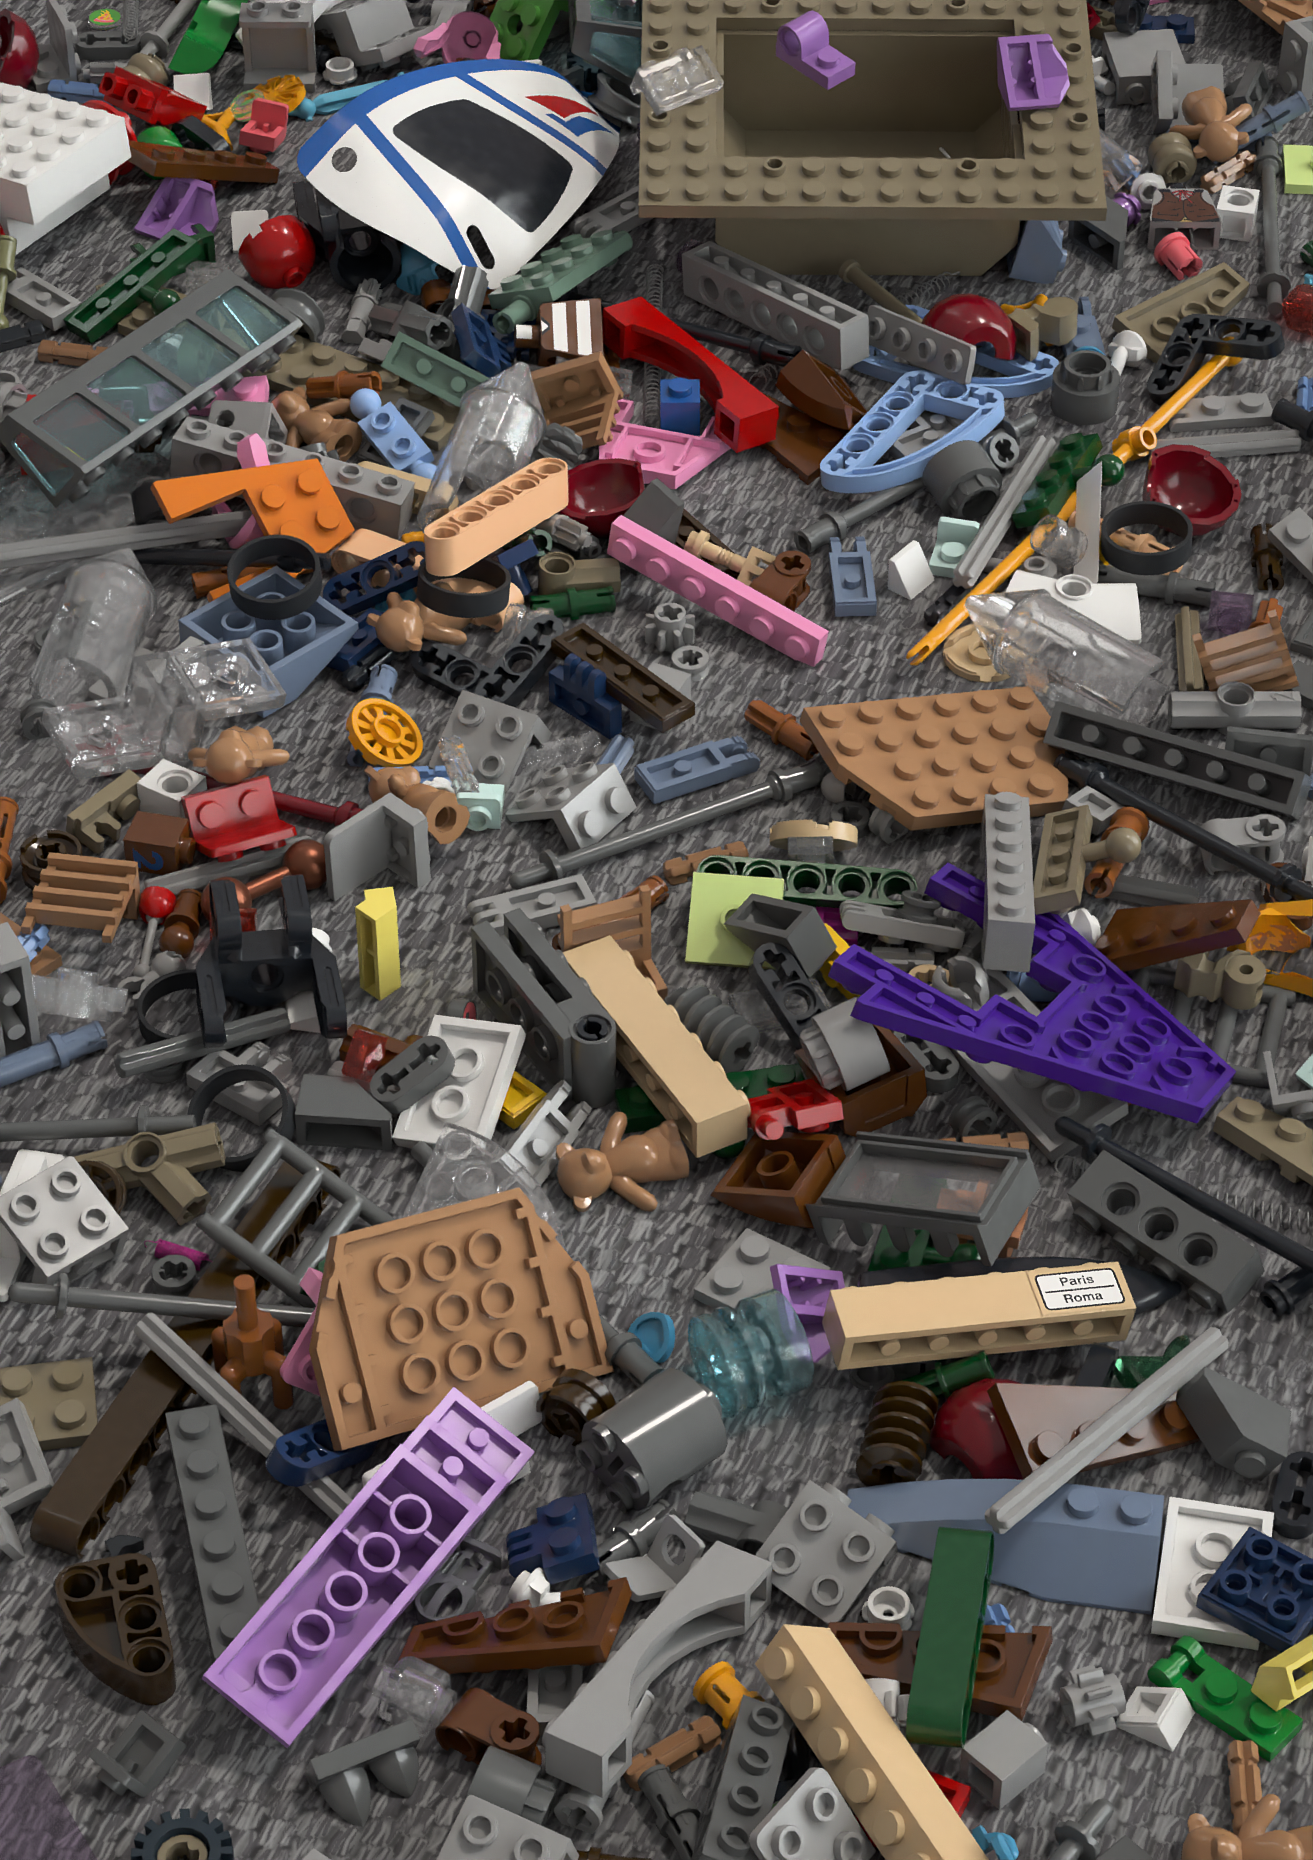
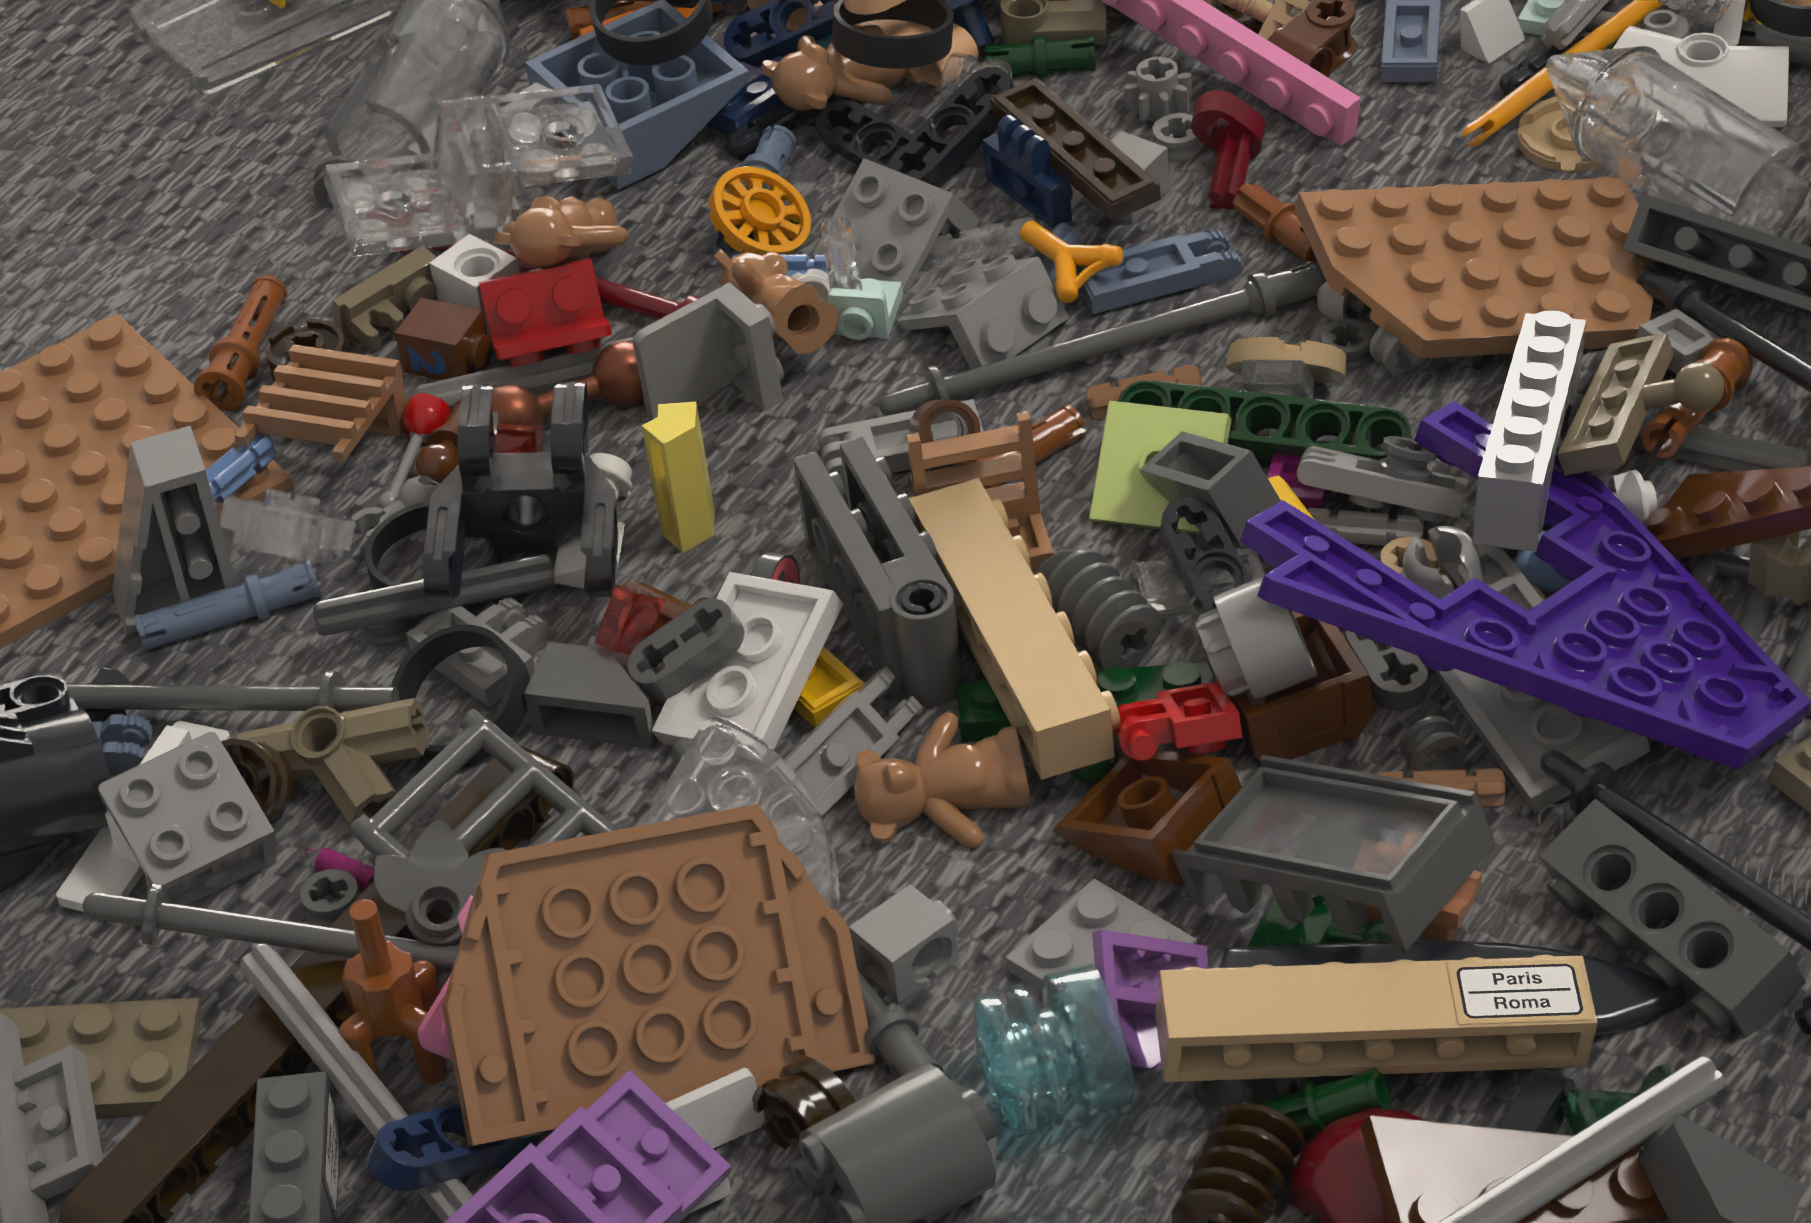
camera: 15 degrees right, 0 degrees up
(272, 1255) = (433, 877): none -> dark grey plate
(560, 891) = (964, 416): none -> reddish brown pin
(622, 1281) = (905, 942): none -> light grey brick
(632, 762) = (1068, 256): none -> light orange piece
(656, 1334) = (939, 1017): dark azure piece -> none
(737, 662) = (1232, 132): none -> dark red piece

